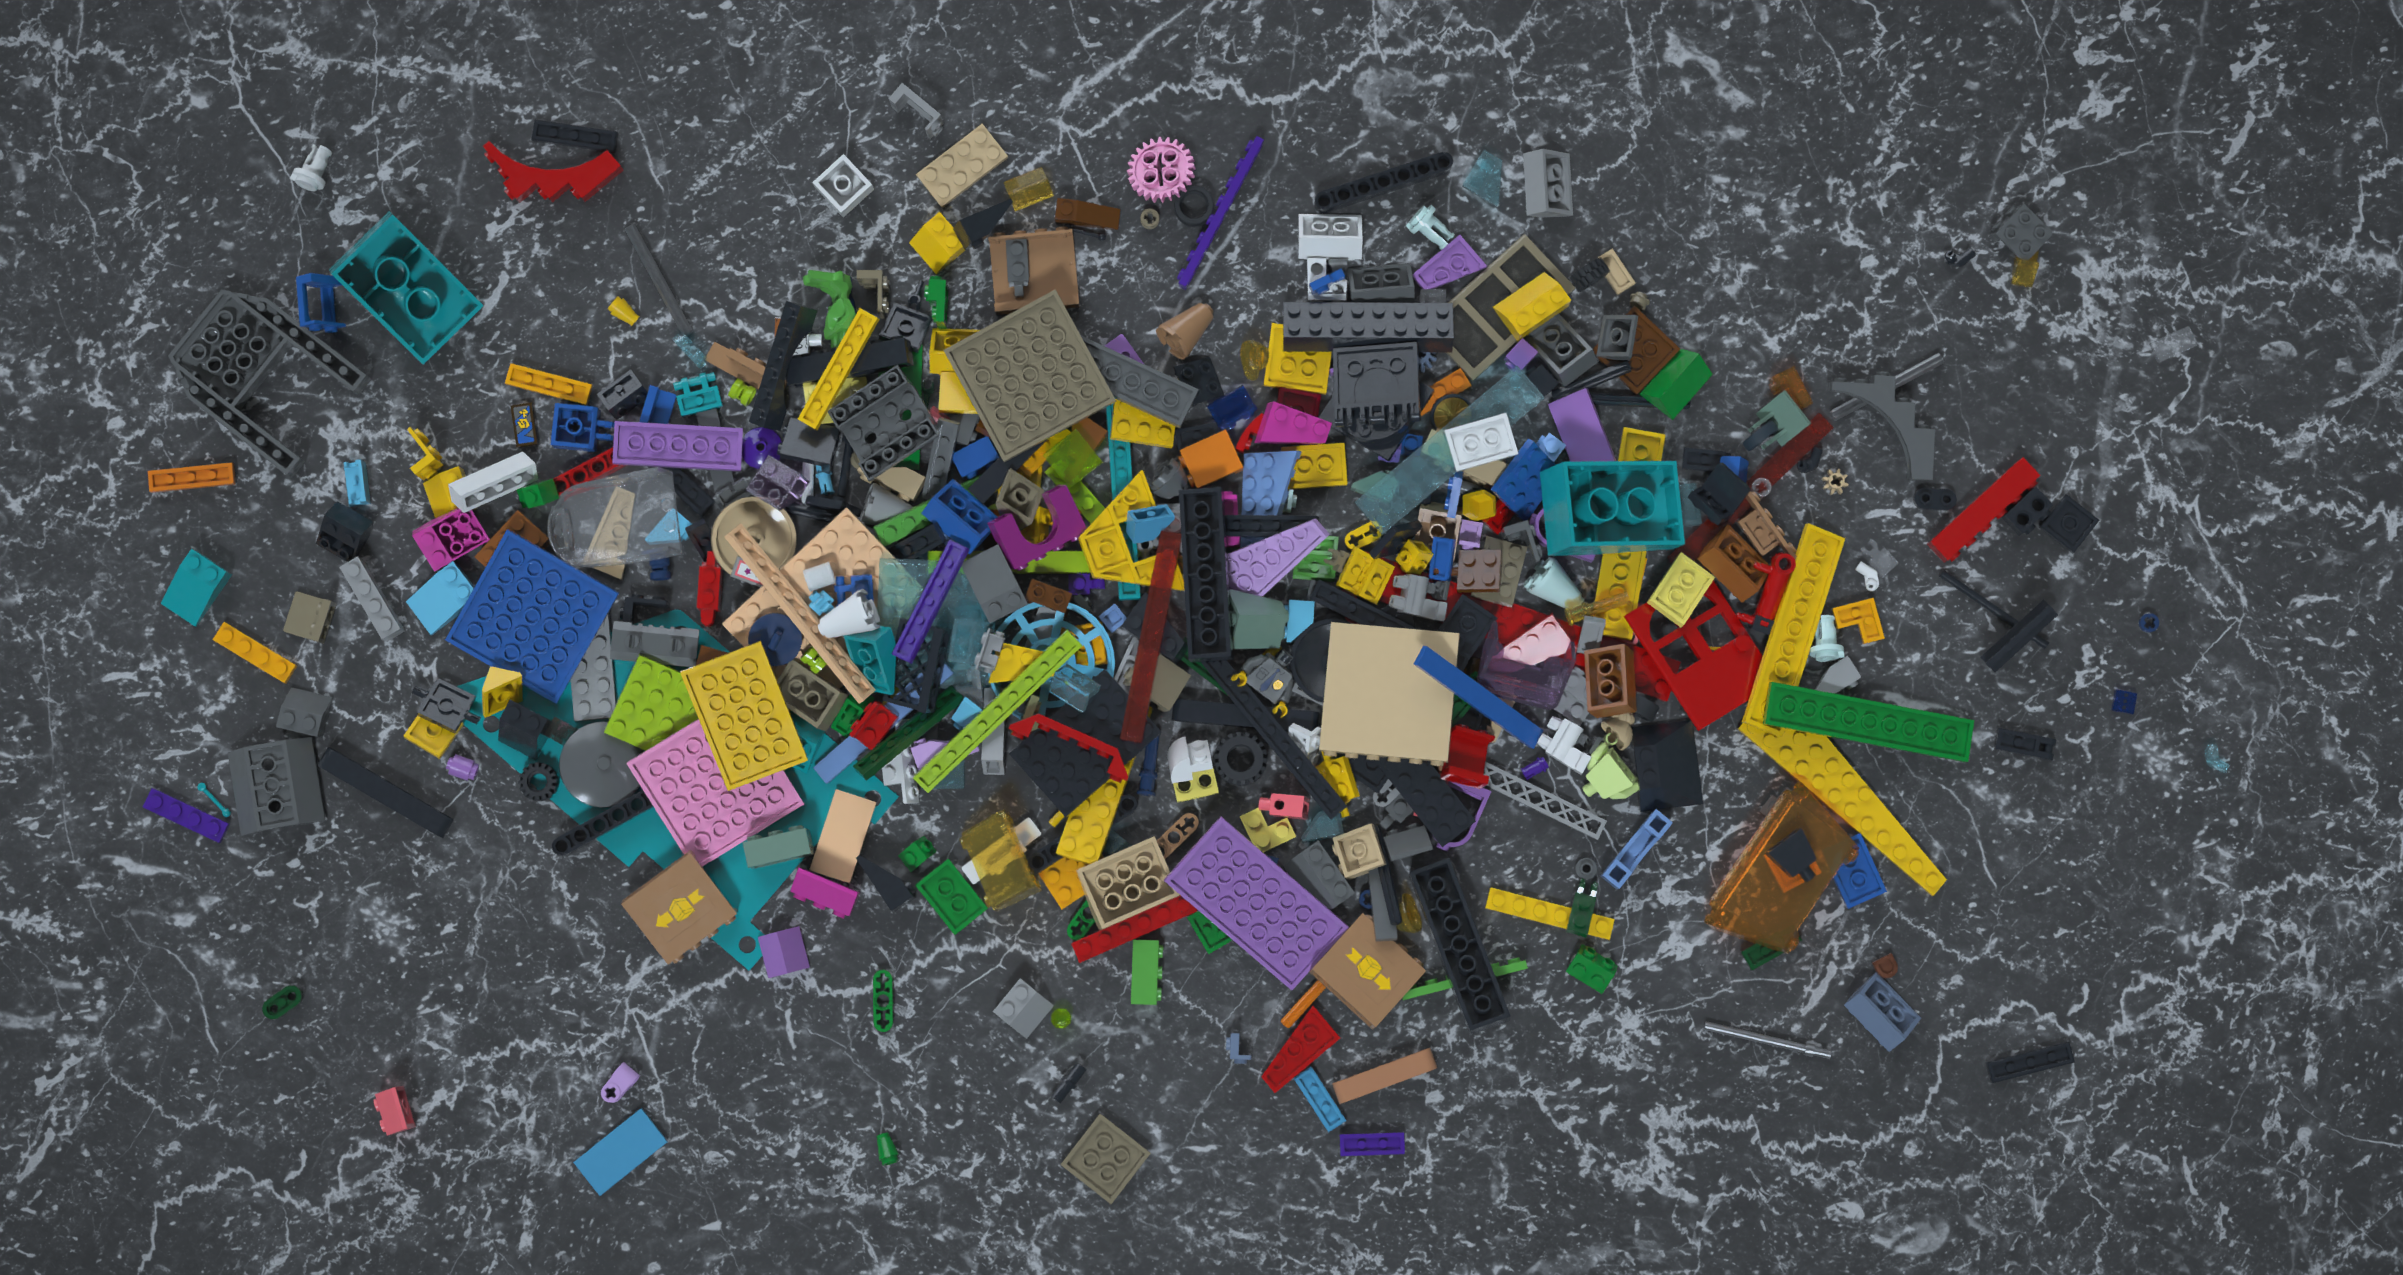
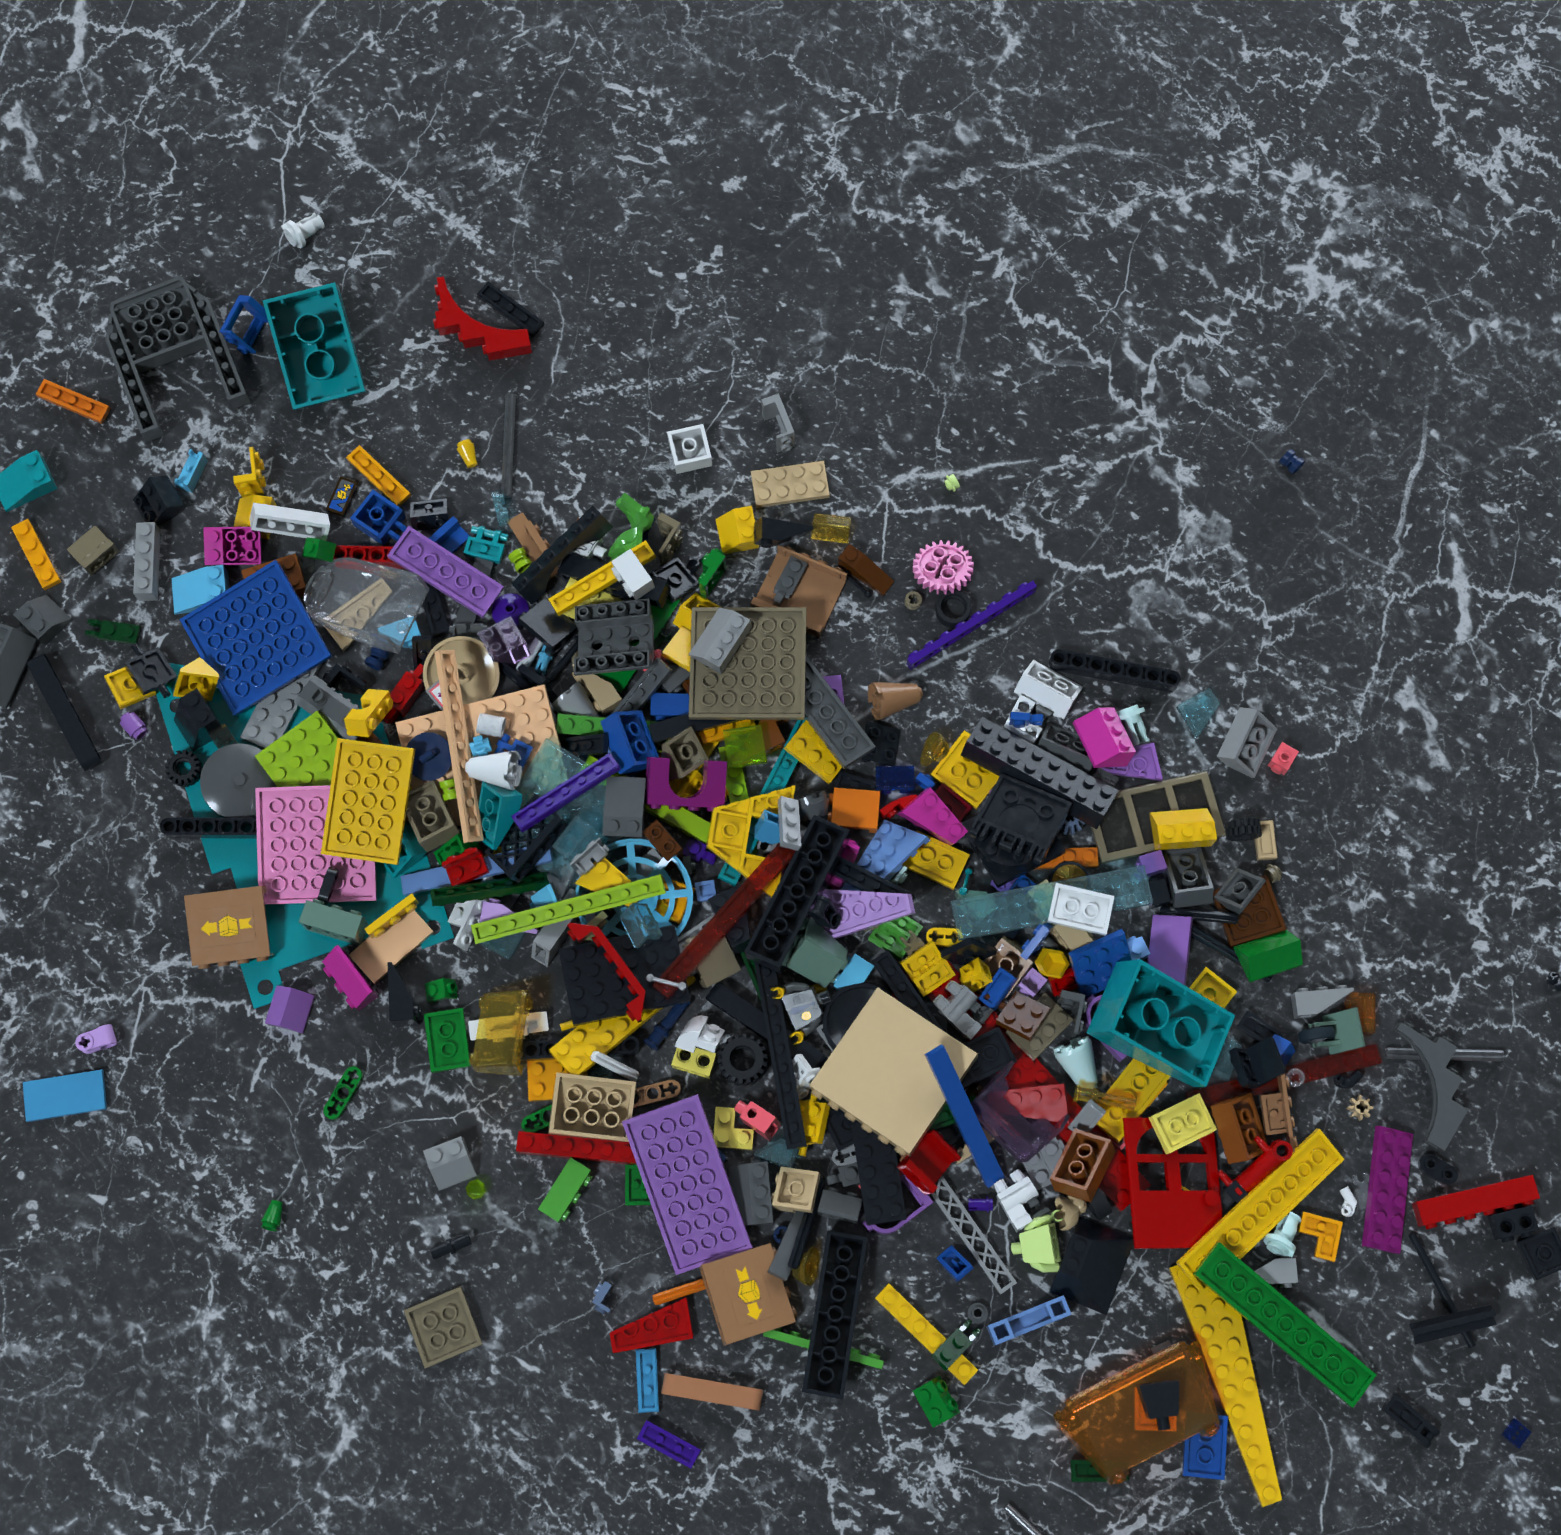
camera: 30 degrees right, 10 degrees down
(384, 686) = (114, 631): none -> dark green hinge
(693, 619) = (374, 709): none -> yellow arch
(751, 815) = (328, 885): none -> black beam
(831, 811) = (392, 916): none -> yellow plate
(871, 352) = (632, 573): none -> white brick
(991, 367) = (721, 639): none -> light grey slope
(1121, 77) = (951, 482): none -> yellowish green plate
(1125, 832) = (614, 1065): none -> white axle
(1148, 724) = (682, 986): none -> light grey hinge
(1159, 511) = (789, 823): none -> light grey plate
(1243, 579) = (825, 913): none -> black piece
(1263, 395) = (925, 781): none -> blue plate
(1358, 482) = (963, 890): none -> teal hinge
(1411, 258) = (1105, 738): none -> dark pink slope
(1541, 835) = (954, 1263): none -> blue slope
(1590, 182) = (1282, 759): none -> coral brick
(1741, 406) = (1311, 1003): none -> light grey slope
(1898, 544) = (1387, 1190): none -> magenta plate

